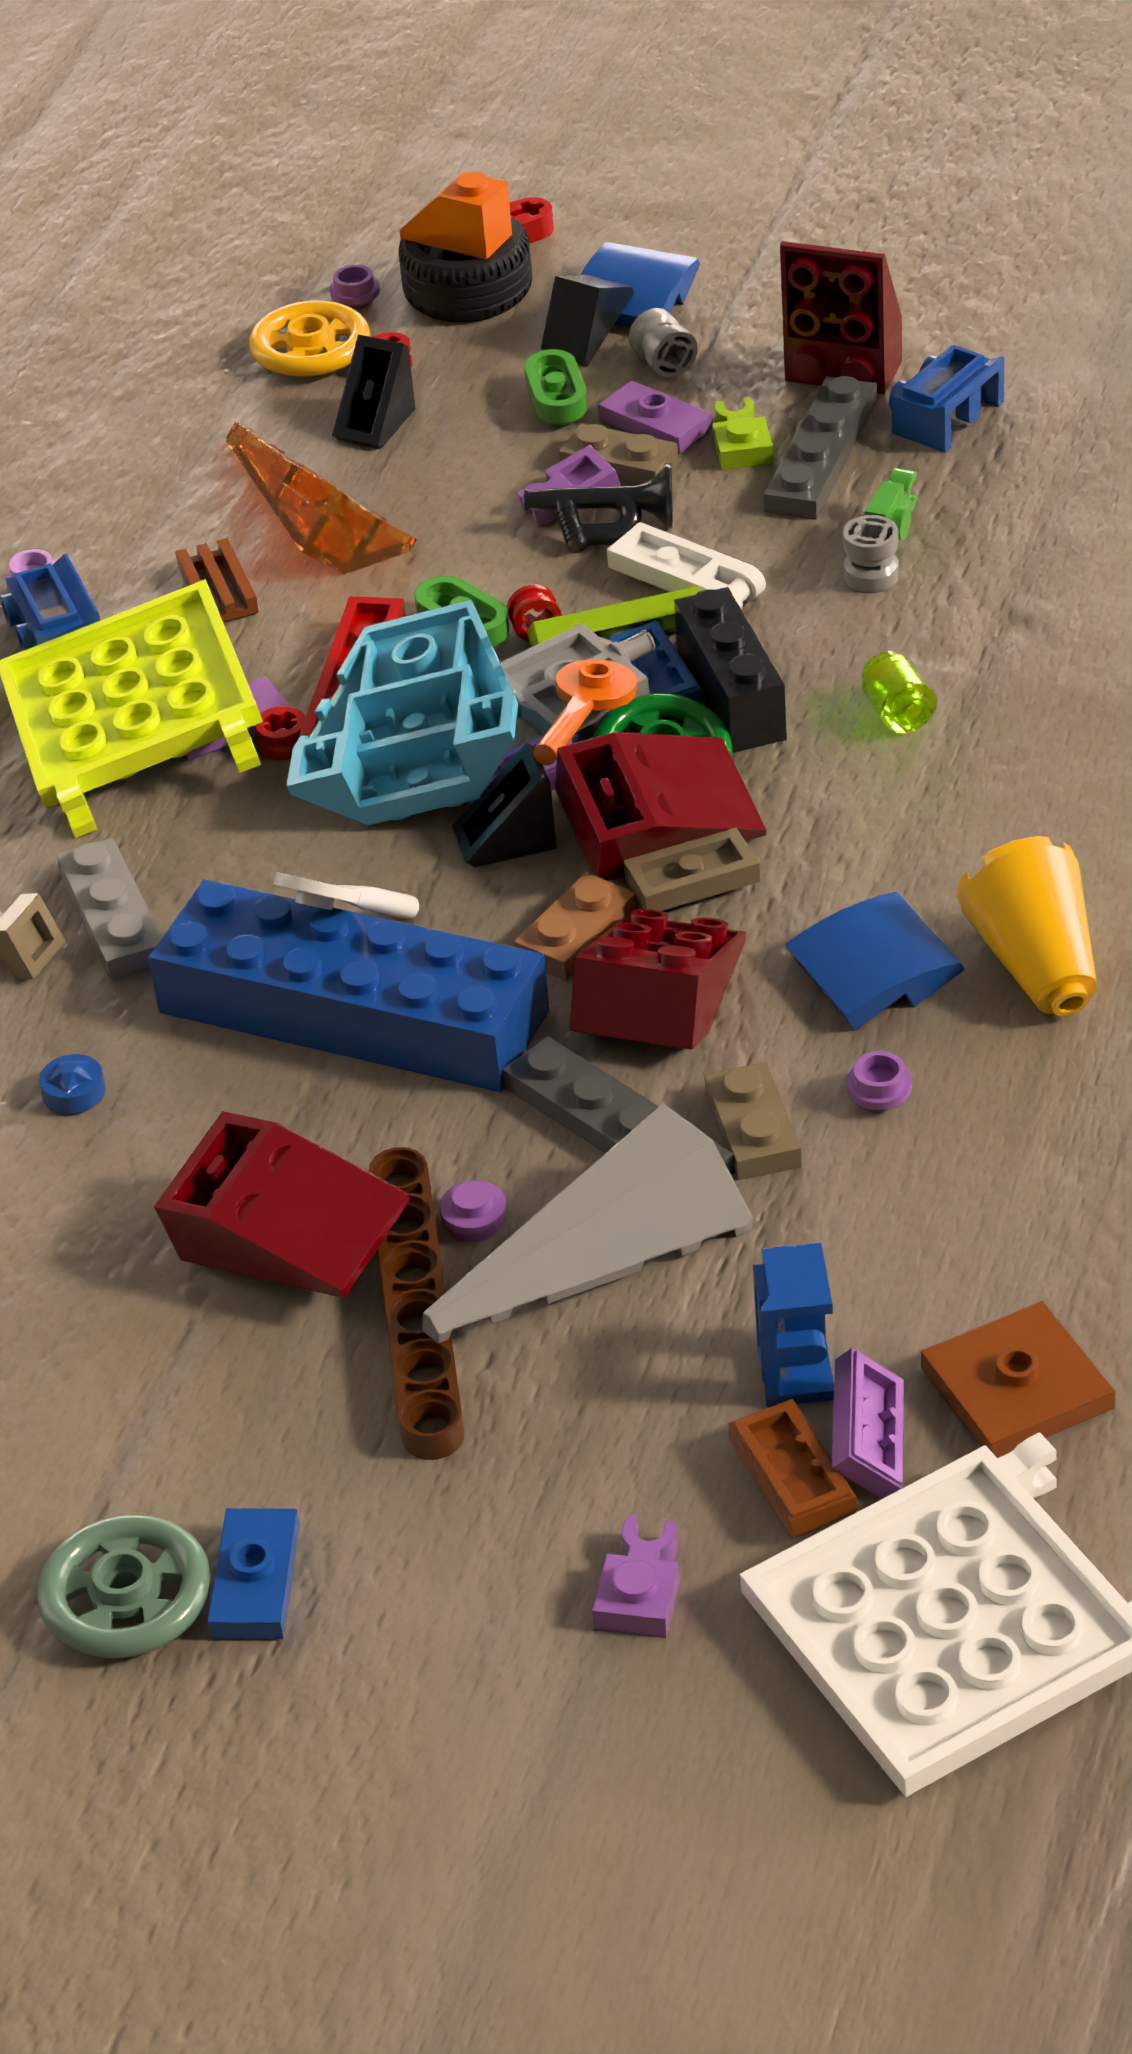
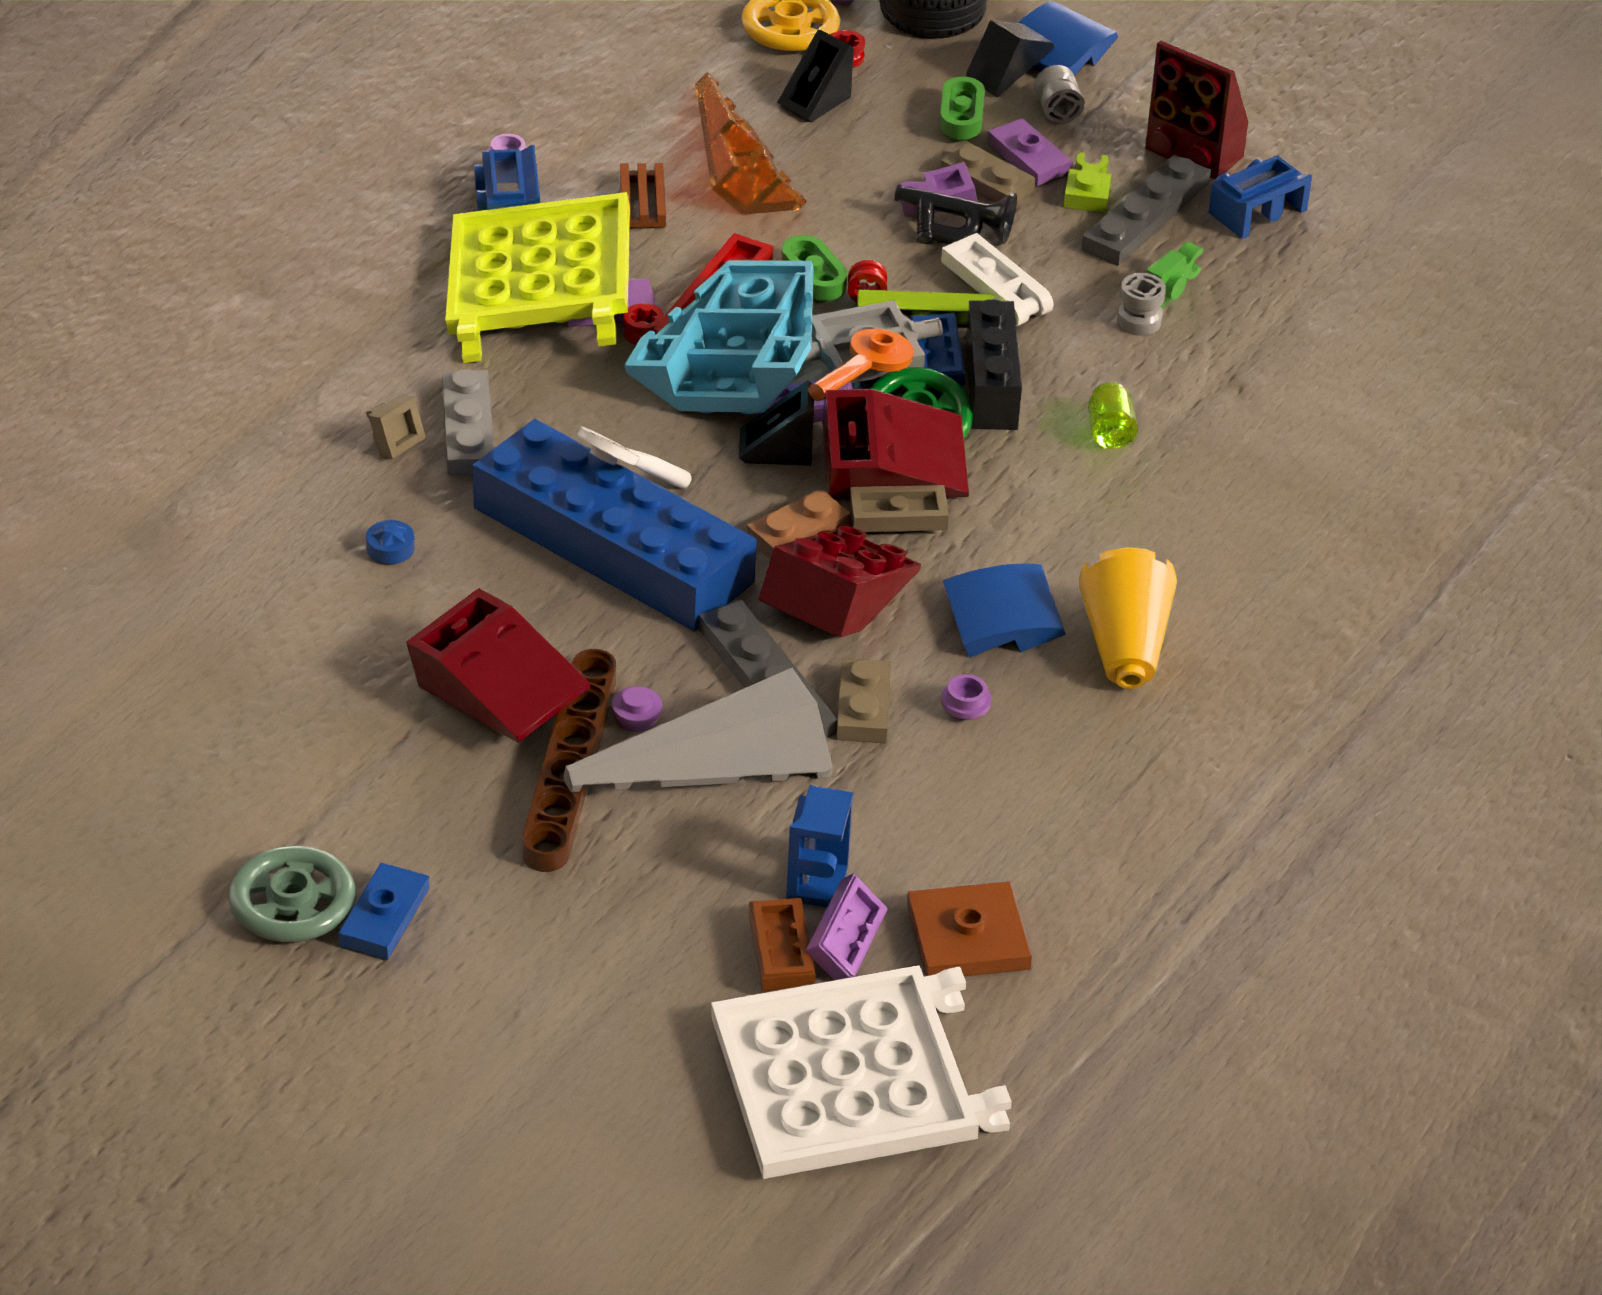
camera: 10 degrees right, 0 degrees up
(641, 1585) = (644, 994): medium lavender plate -> none

